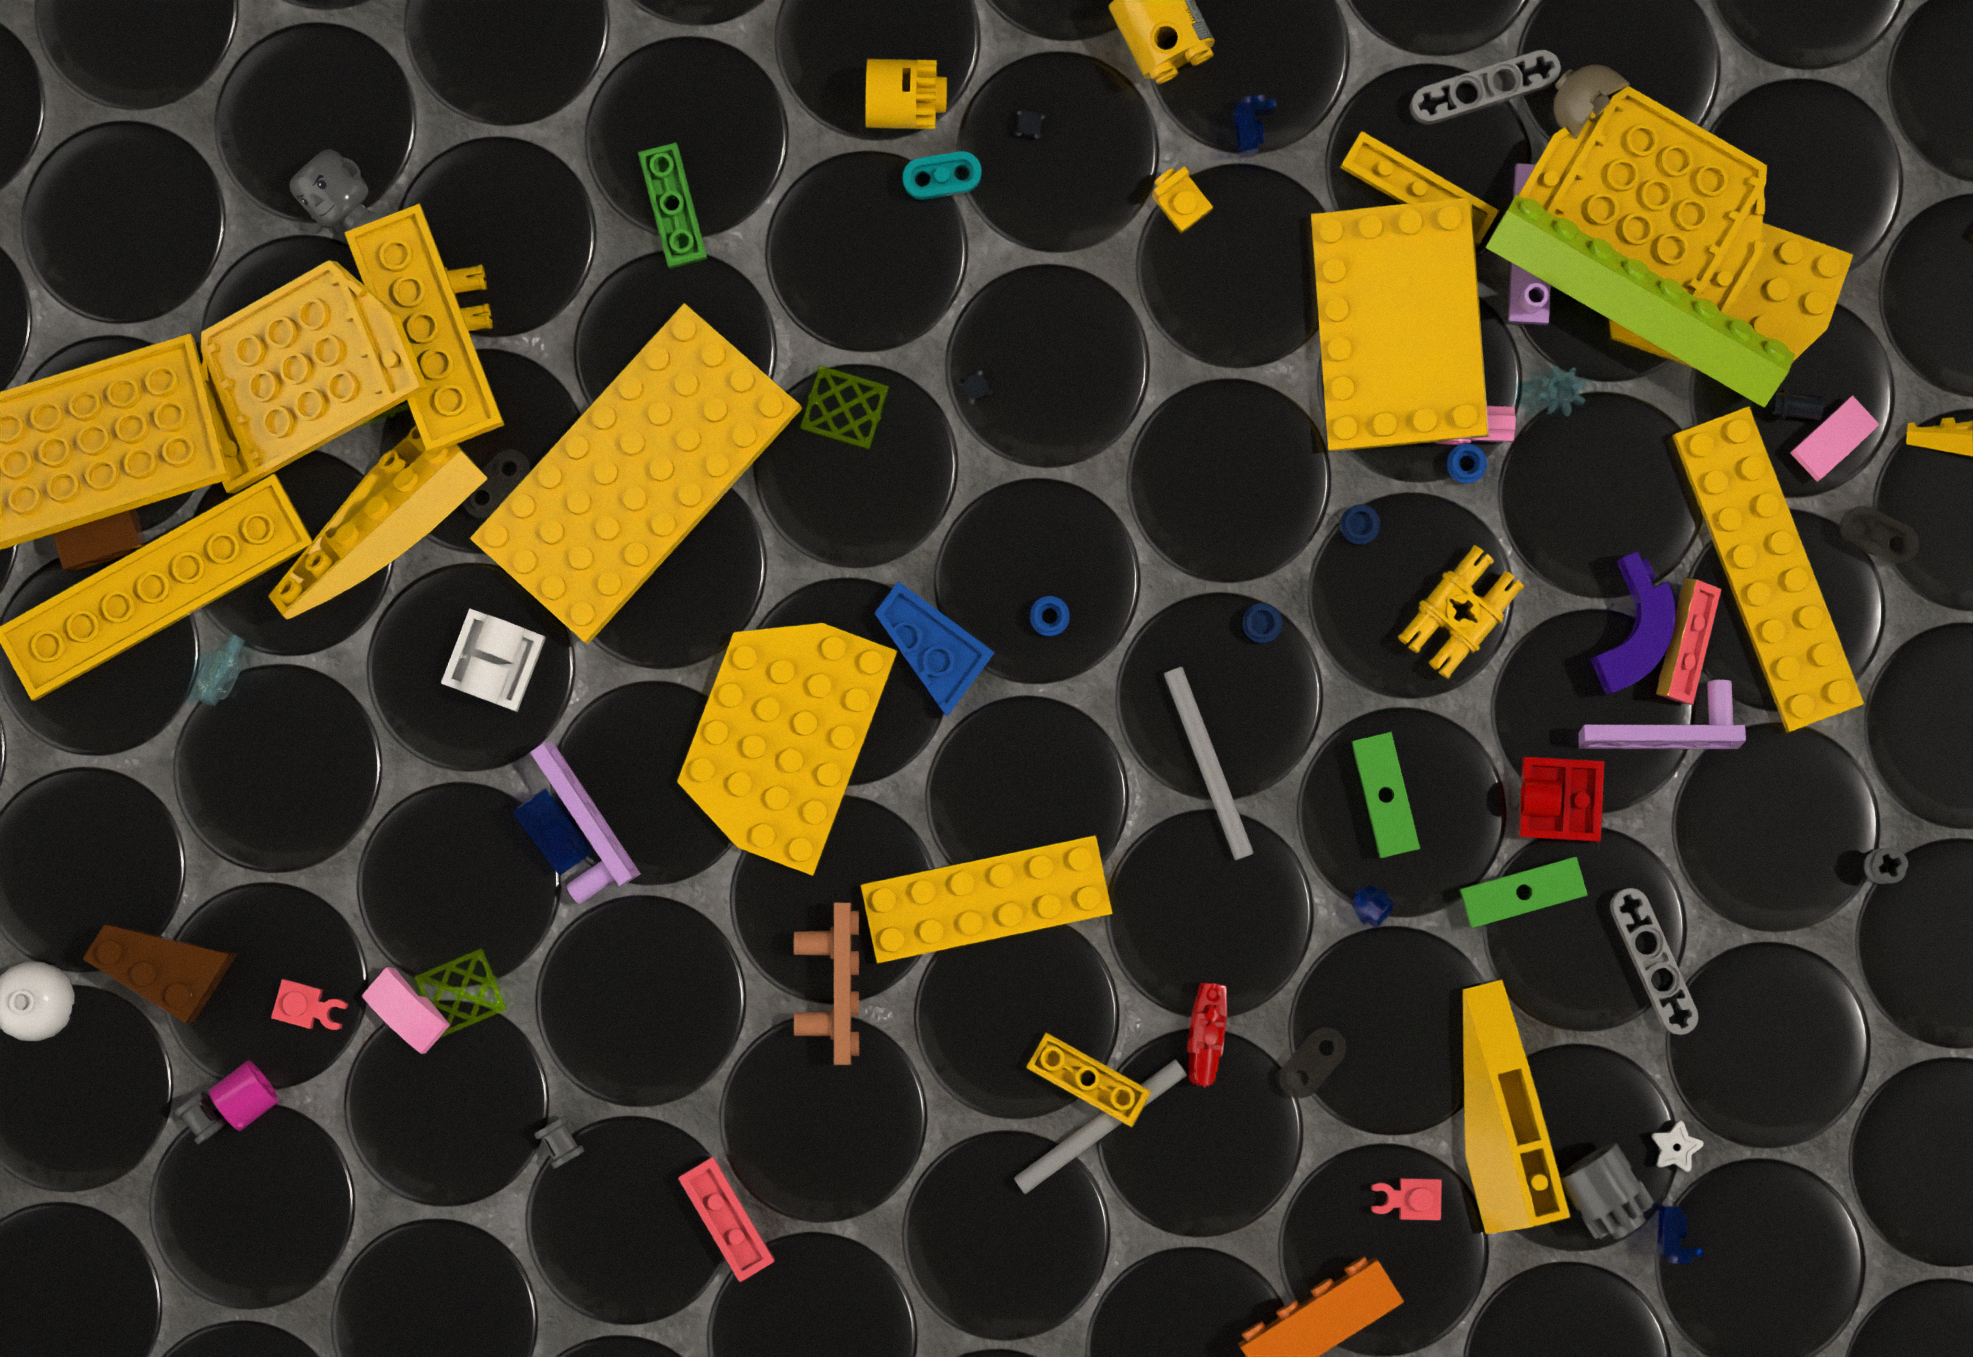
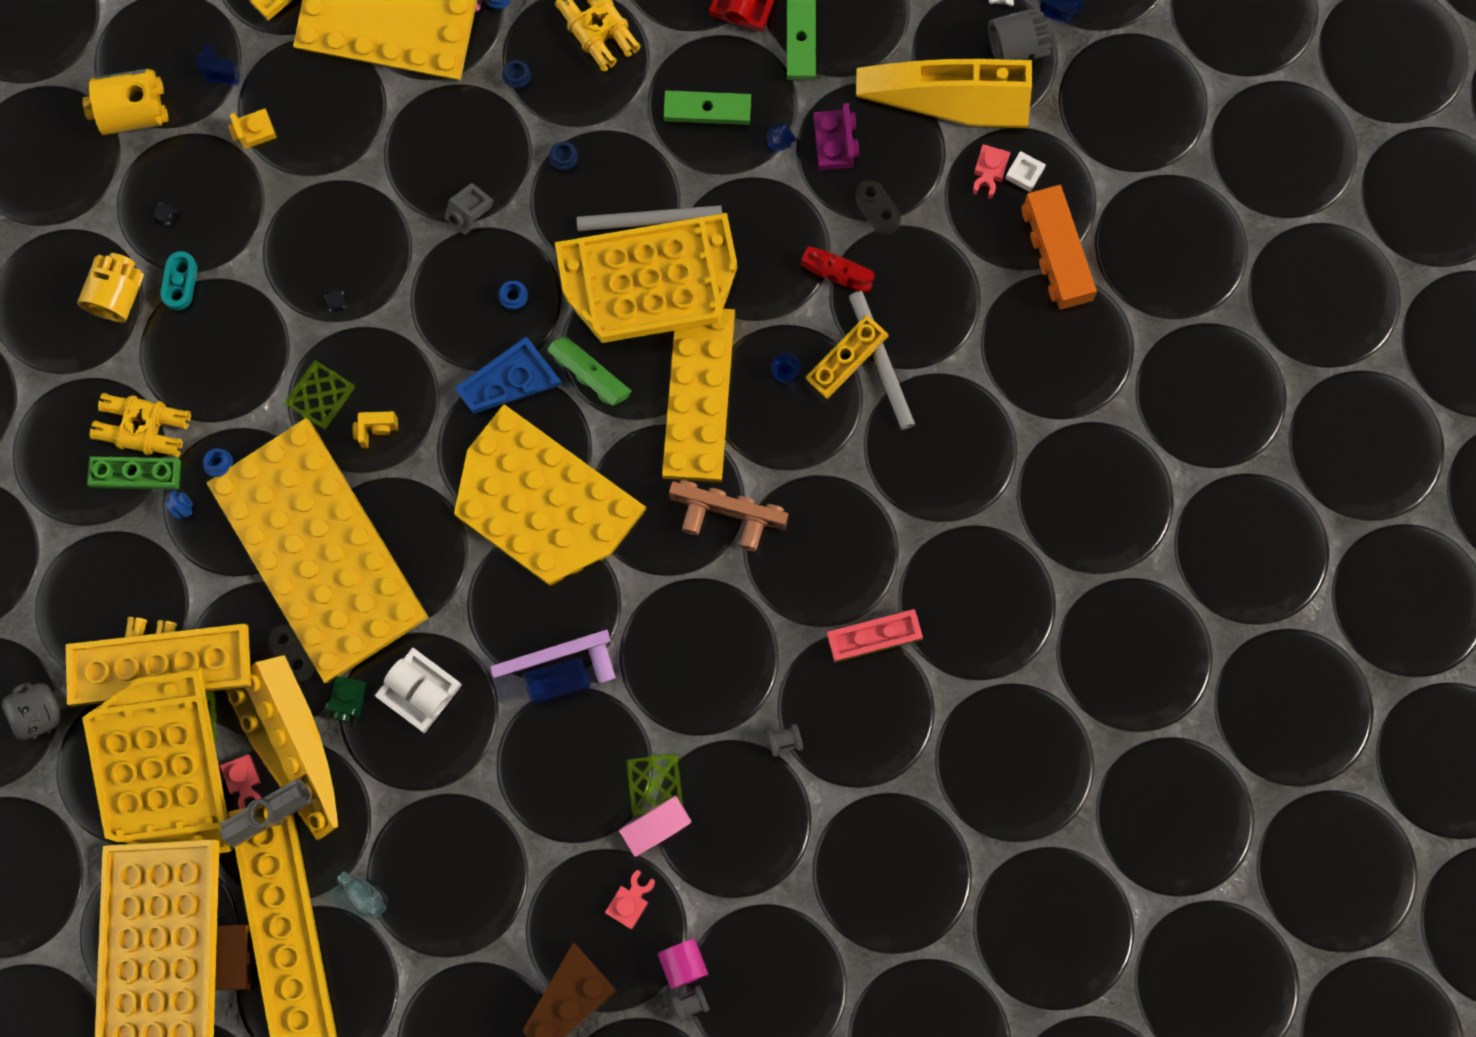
camera: 70 degrees left, 10 degrees down
(290, 539) = (279, 806): none -> dark grey piece
(323, 474) = (241, 778): none -> coral plate
(457, 572) = (346, 699): none -> dark green bracket
(644, 278) = (179, 504): none -> blue plate
(715, 299) = (217, 462): none -> blue plate
(752, 205) = (134, 413): none -> yellow pin
(823, 499) = (378, 422): none -> yellow bracket
(972, 748) = (588, 371): none -> bright green tile
(1050, 1003) = (785, 367): none -> clear blue plate
(1121, 790) = (649, 277): none -> yellow plate
(1151, 519) = (467, 207): none -> dark grey bracket
(1393, 977) = (834, 138): none -> magenta bracket
(1418, 1247) = (1025, 171): none -> white plate

